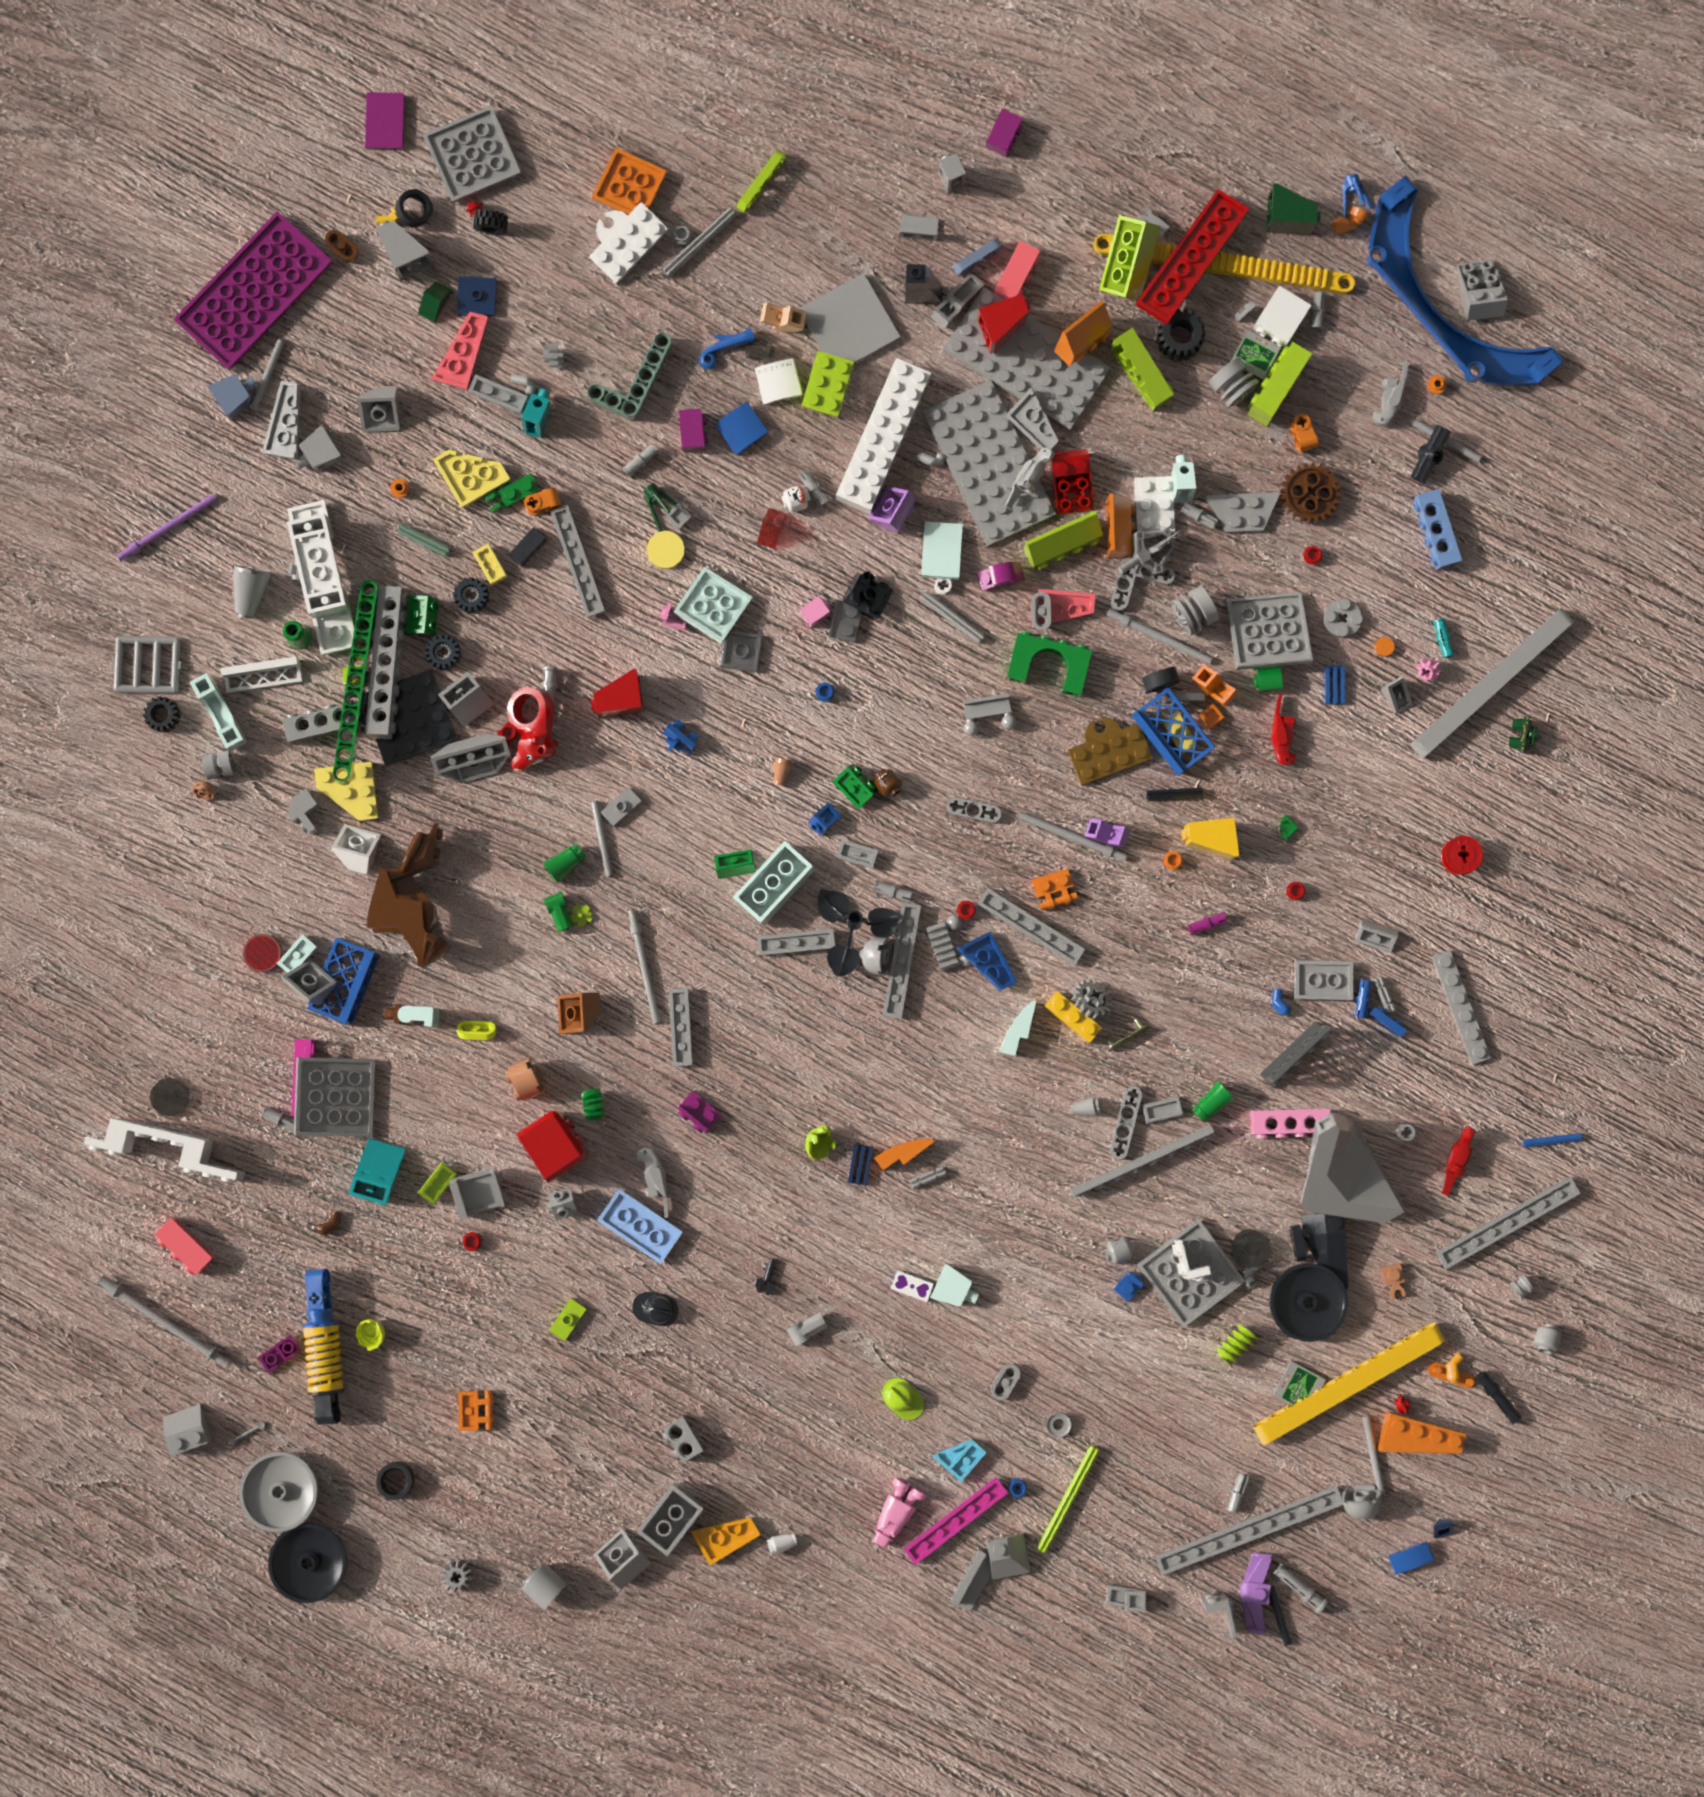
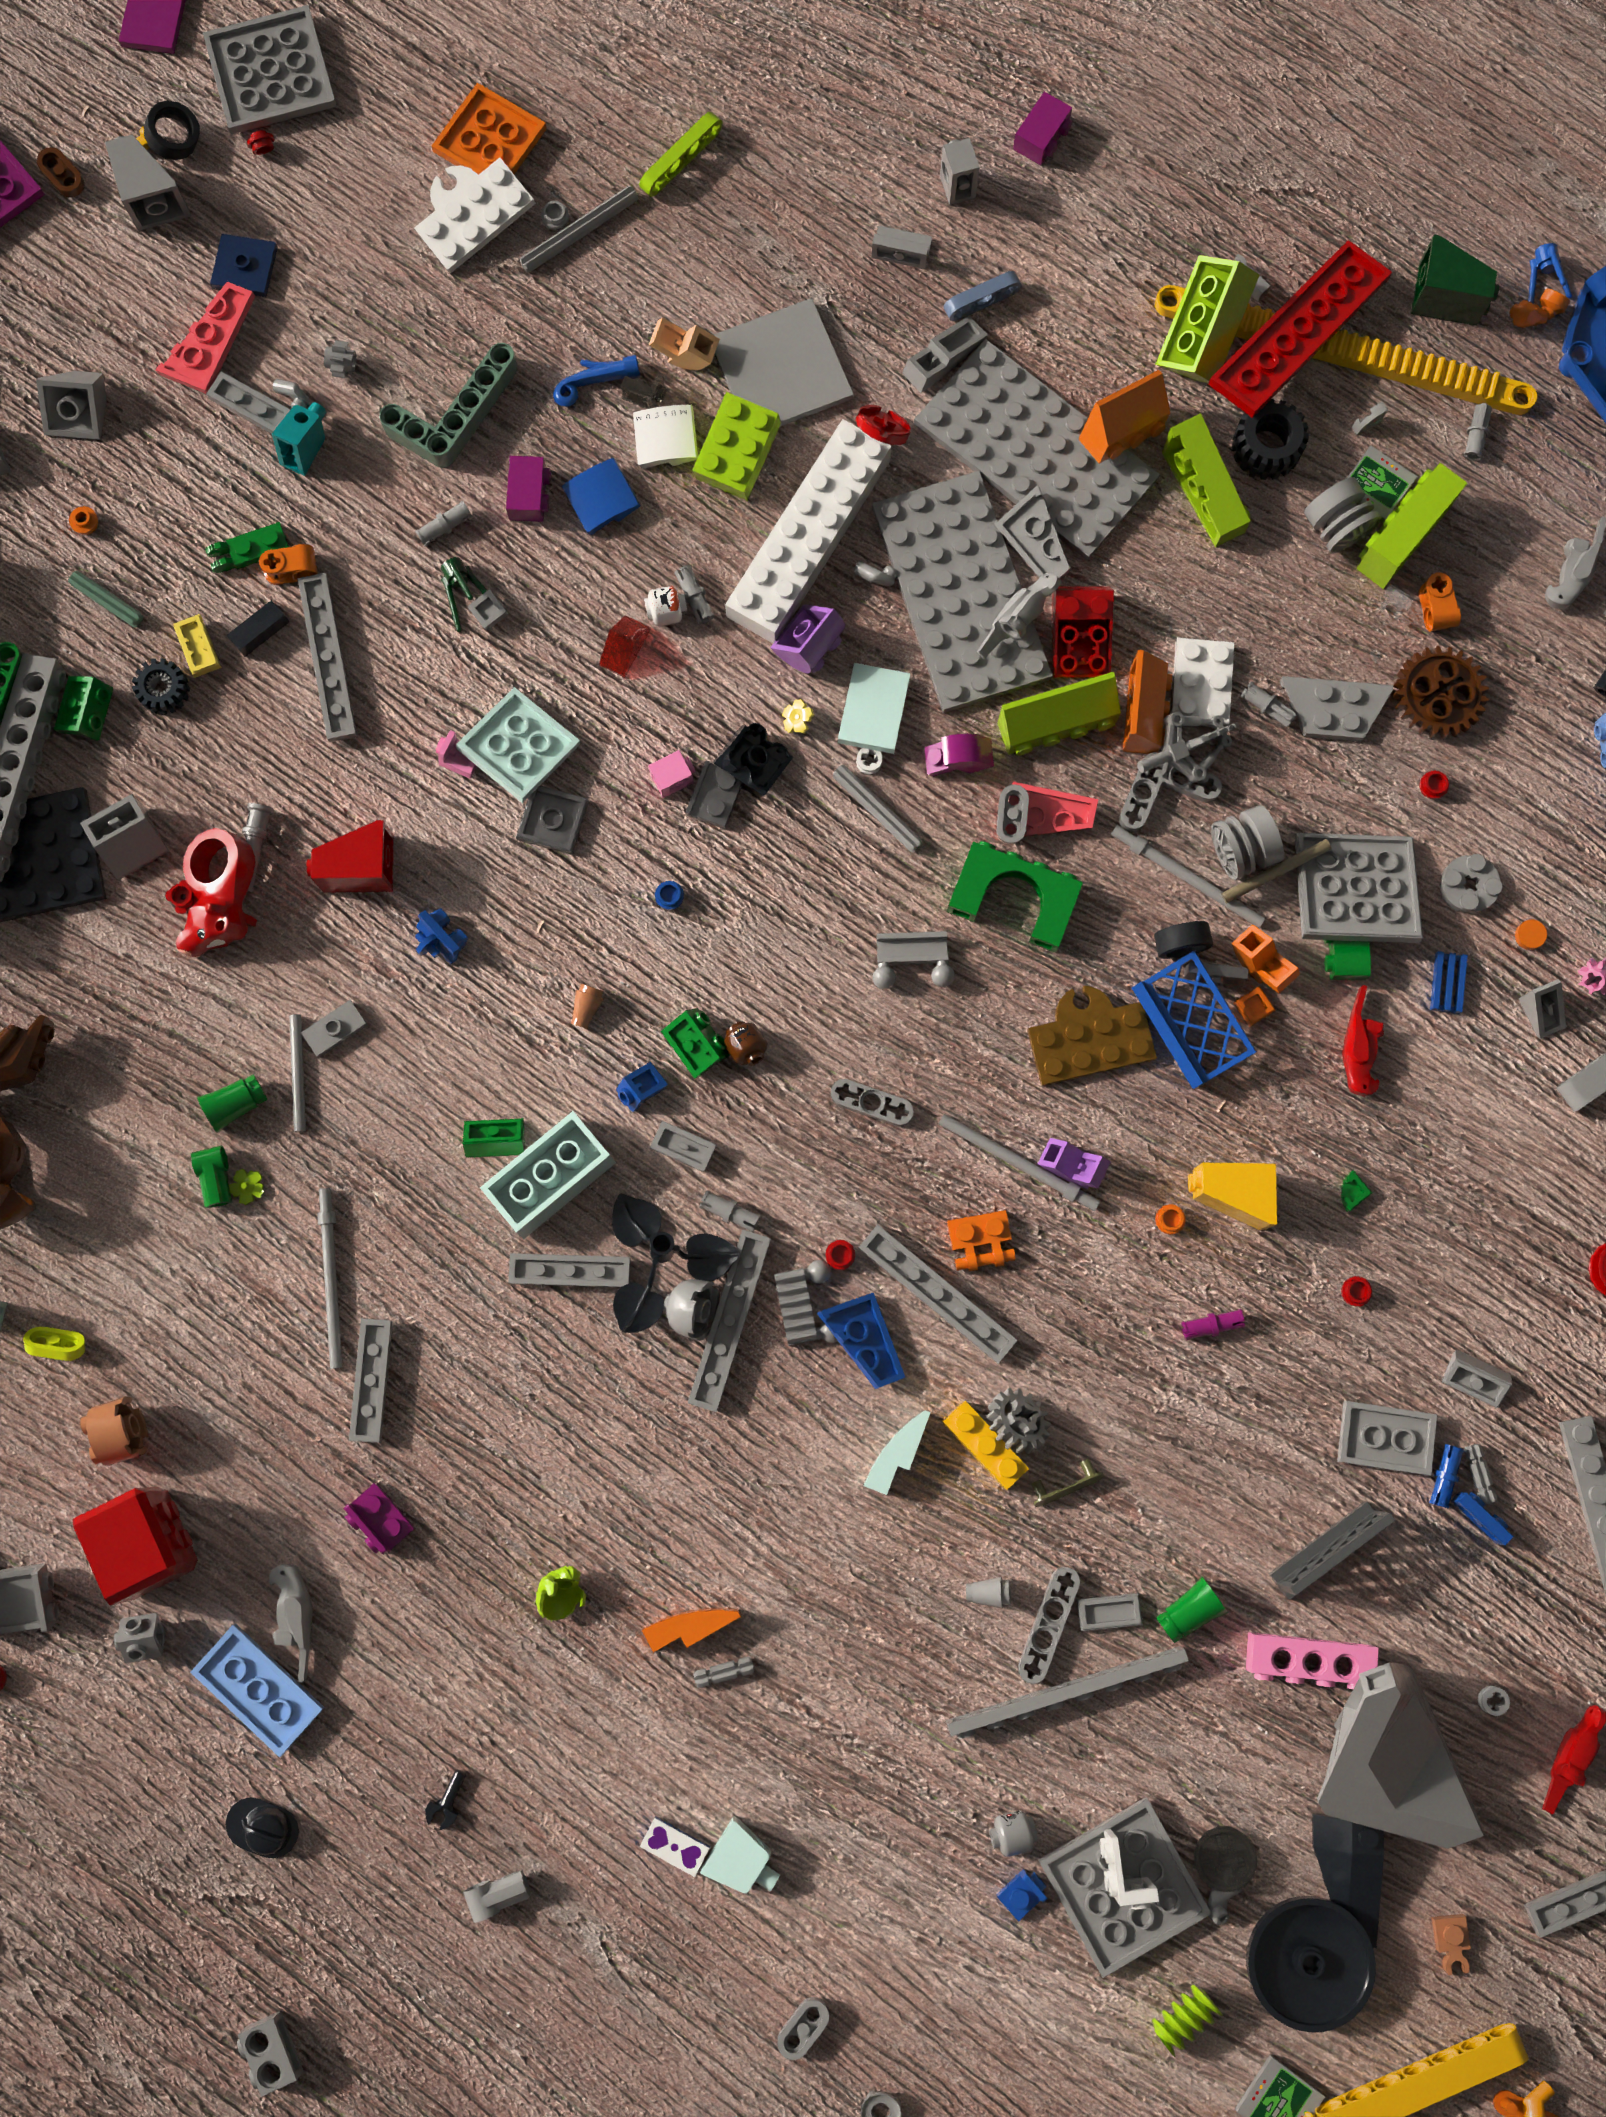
camera: 10 degrees right, 5 degrees down
(433, 301) = (179, 263): dark green slope -> none
(437, 645) = (100, 752): black bush -> none
(470, 476) = (189, 515): light yellow plate -> none
(471, 758) = (116, 926): light grey wedge -> none
(490, 222) = (278, 161): black tyre -> none
(567, 1319) = (119, 1826): lime plate -> none
(577, 1011) = (215, 1334): dark orange slope -> none
(593, 1104) = (213, 1485): green gear -> none
(665, 549) = (461, 657): light yellow tile -> none
(857, 1181) = (611, 1663): dark blue tile -> none
(892, 562) = (796, 717): none -> light yellow plant
(903, 1399) = (635, 2033): lime piece -> none
(922, 285) = (893, 318): black slope -> none
(923, 358) = (883, 426): none -> red tile
(1002, 320) = (1008, 382): red slope -> none
(1018, 271) = (1038, 324): coral brick -> none
(1174, 794) = (1184, 1117): black axle -> none
(1177, 729) = (1200, 1017): light yellow plate -> none
(1183, 480) = (1251, 649): light aqua torso -> none
(1216, 626) = (1276, 871): none -> dark tan bar
(1278, 1004) = (1312, 1467): blue arm -> none
(1281, 317) = (1423, 432): white panel -> none
(1297, 1243) = (1303, 1860): black beam -> none

